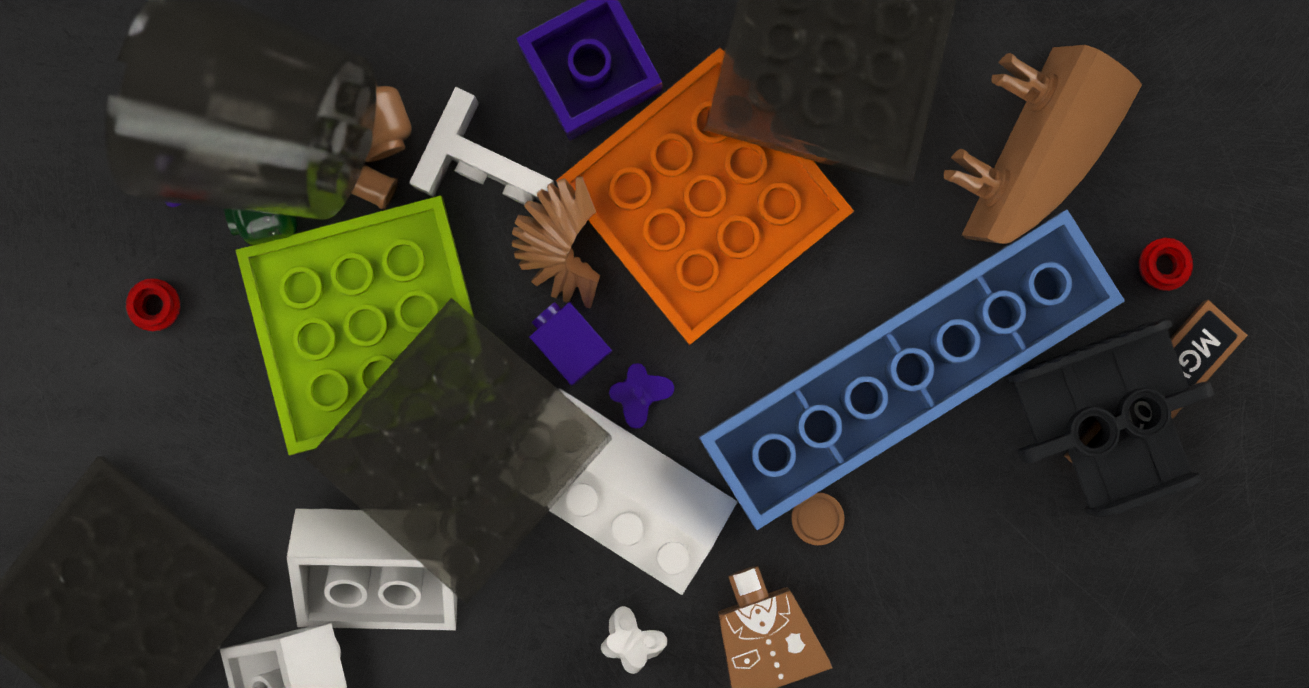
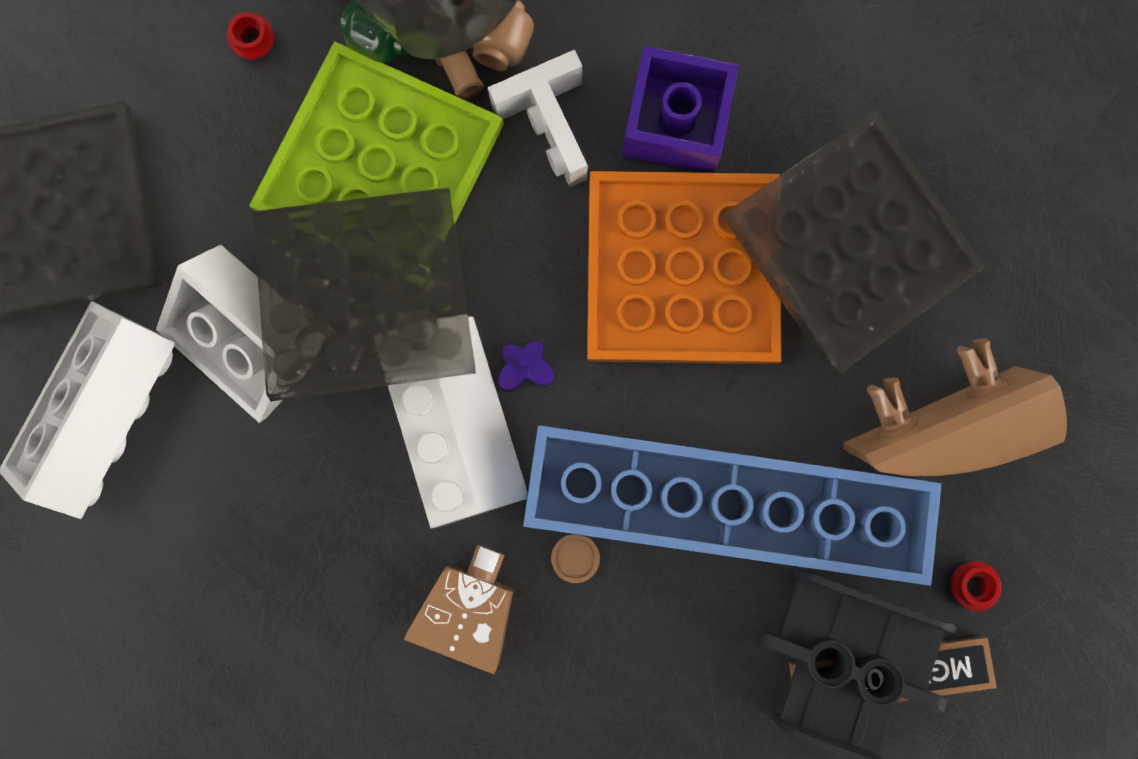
camera: 45 degrees right, 5 degrees down
(548, 239) = (553, 206): medium nougat hair -> none
(568, 341) = (505, 288): dark purple brick -> none
(631, 643) = (369, 533): white piece -> none

